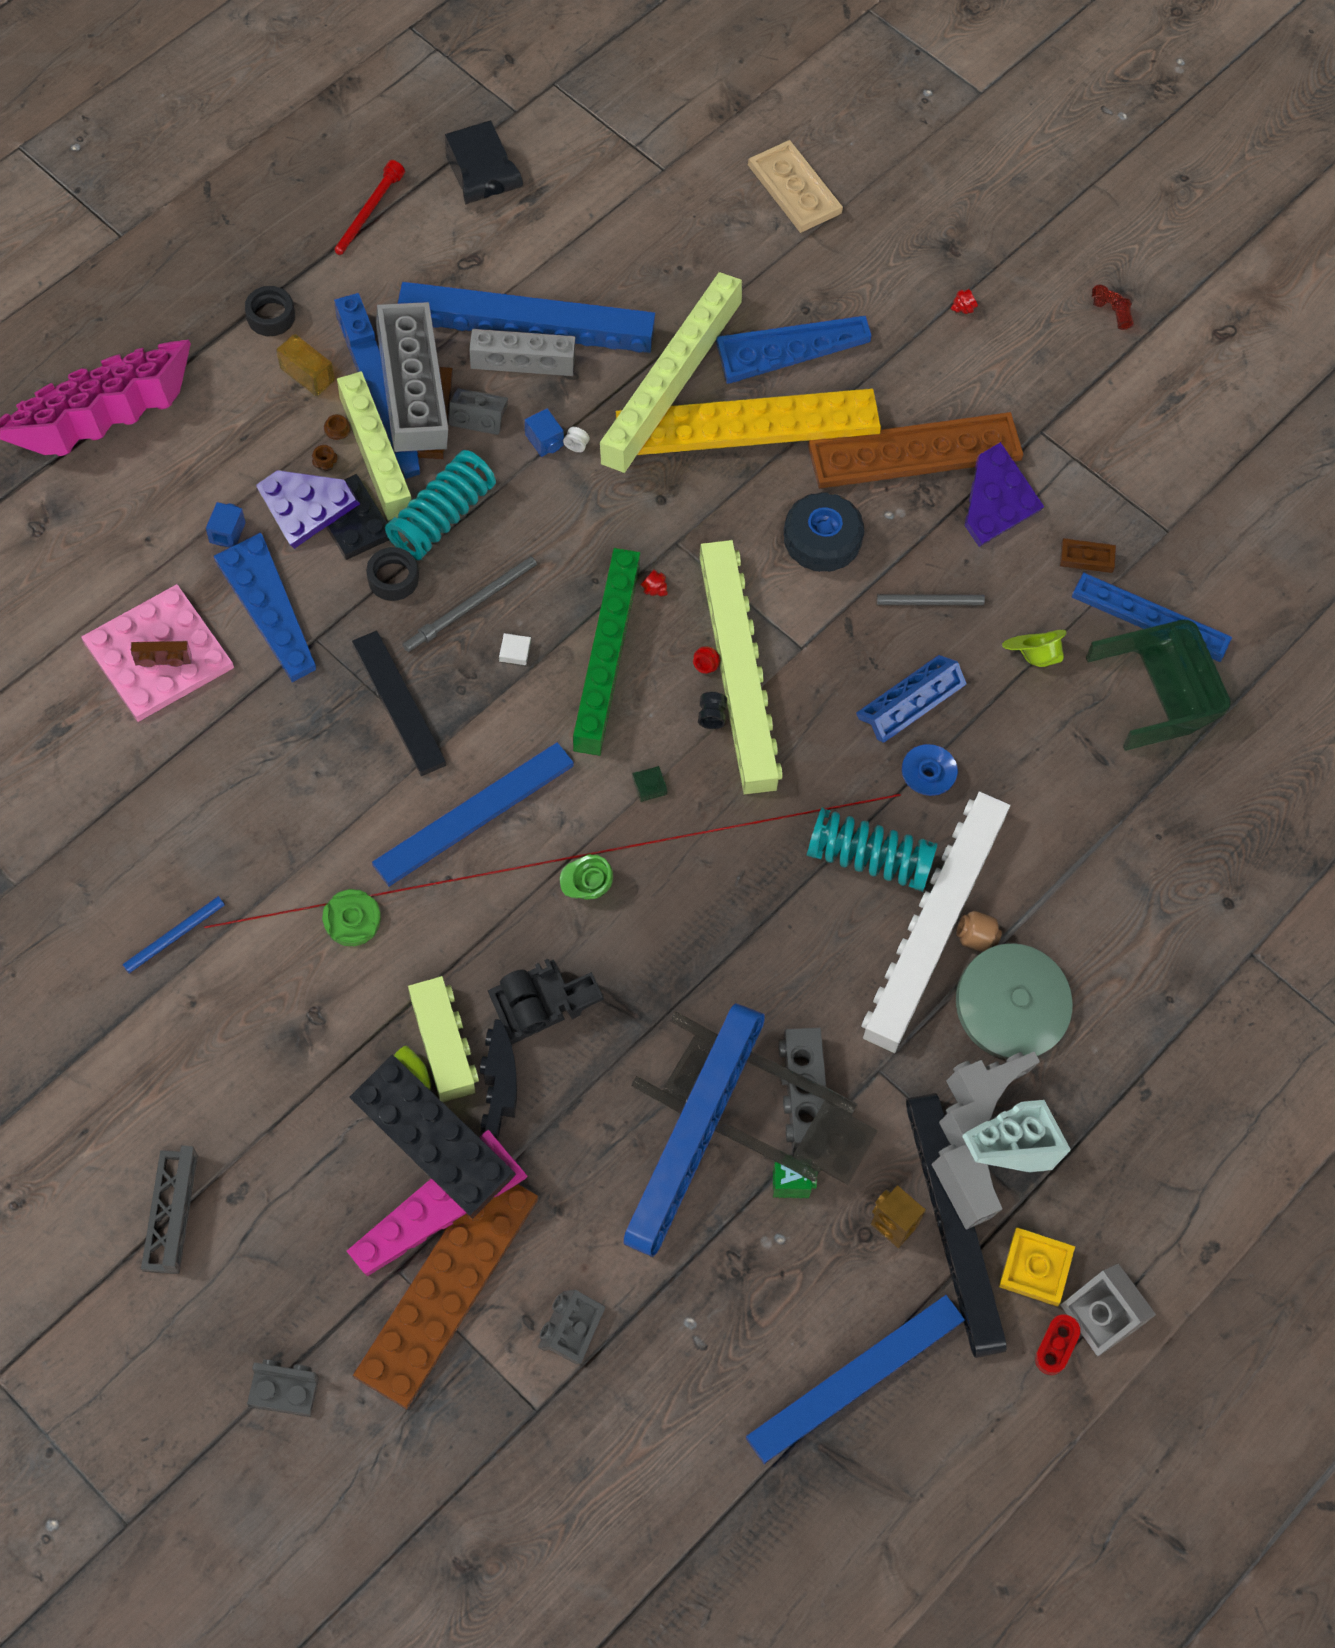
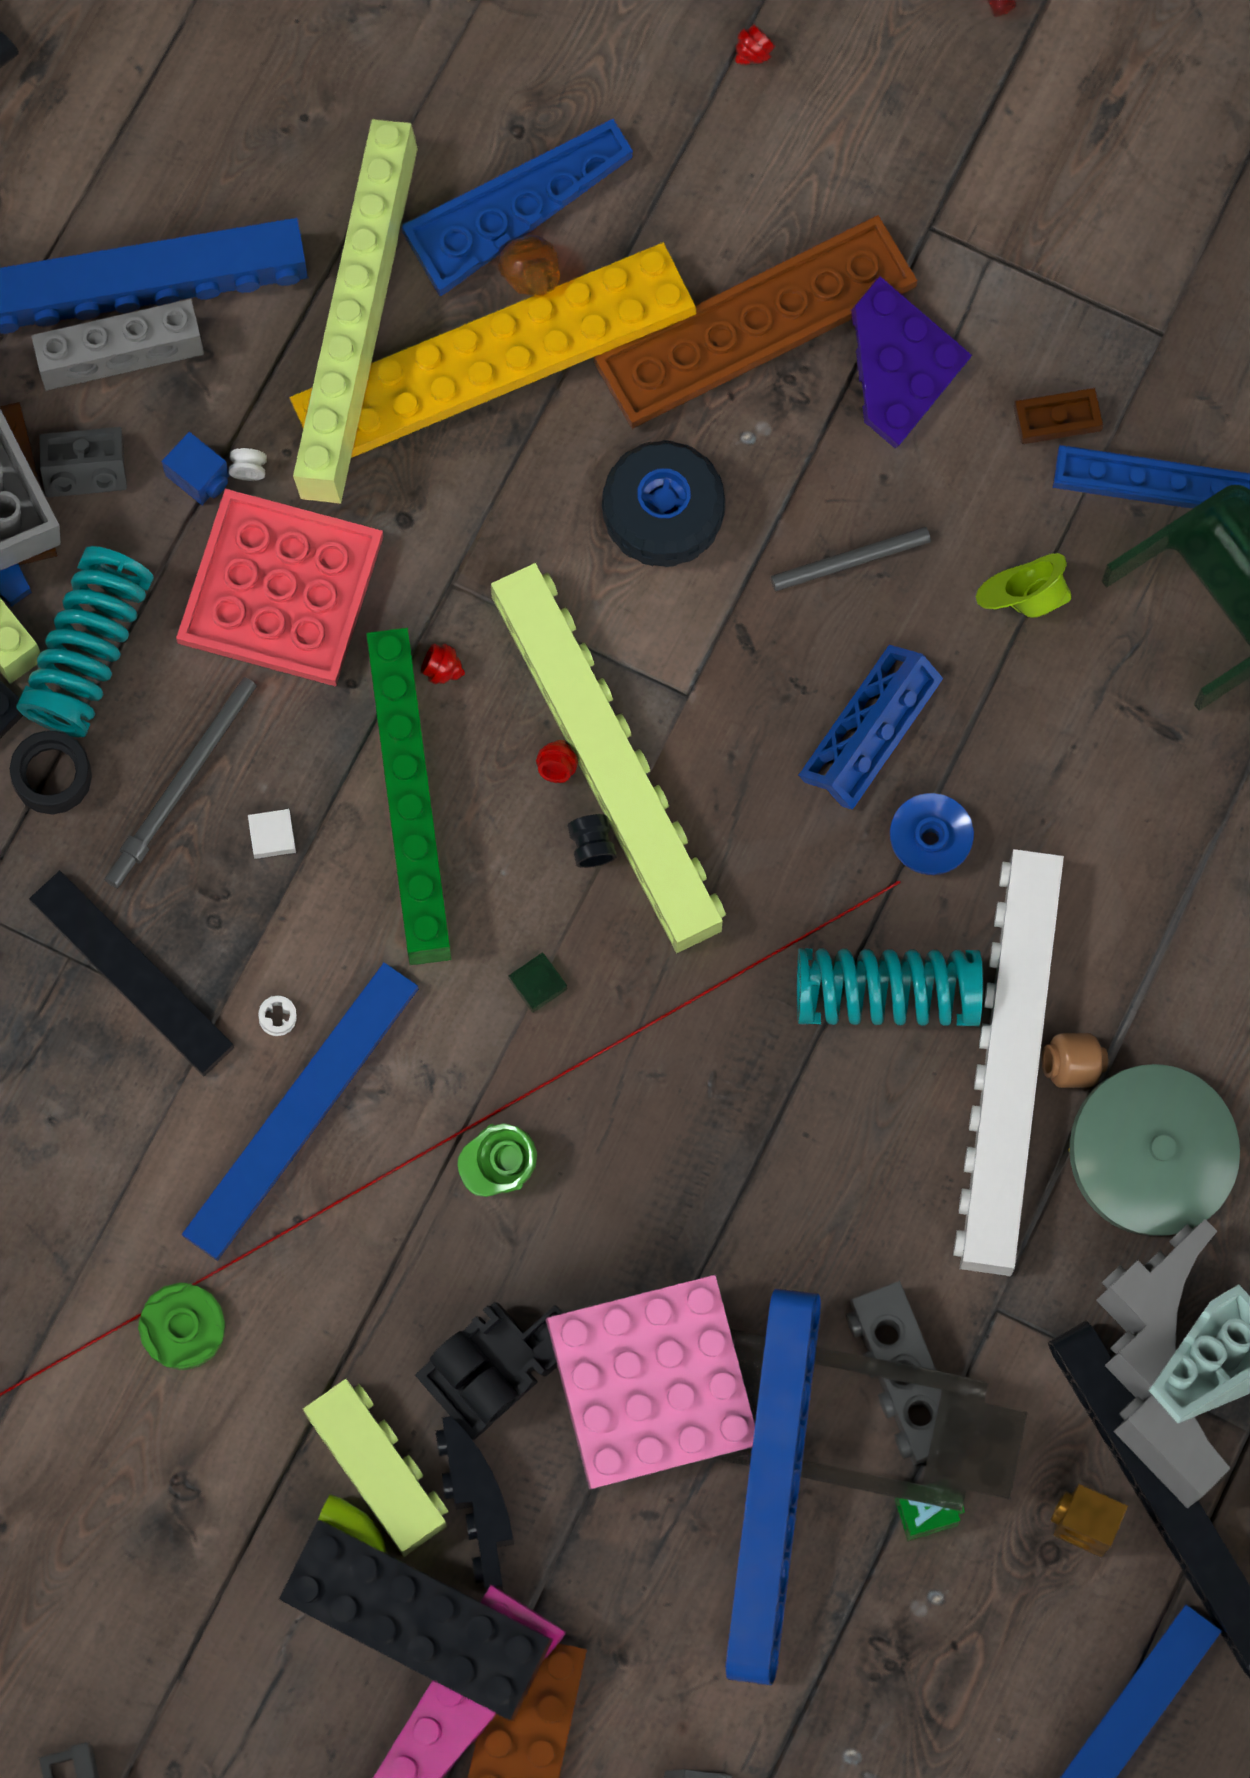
camera: 15 degrees left, 10 degrees up
(475, 746) = (287, 1008): none -> white bush
(571, 512) = (280, 587): none -> coral plate
(637, 1038) = (652, 1381): none -> bright pink plate
(787, 379) = (530, 265): none -> clear orange hair

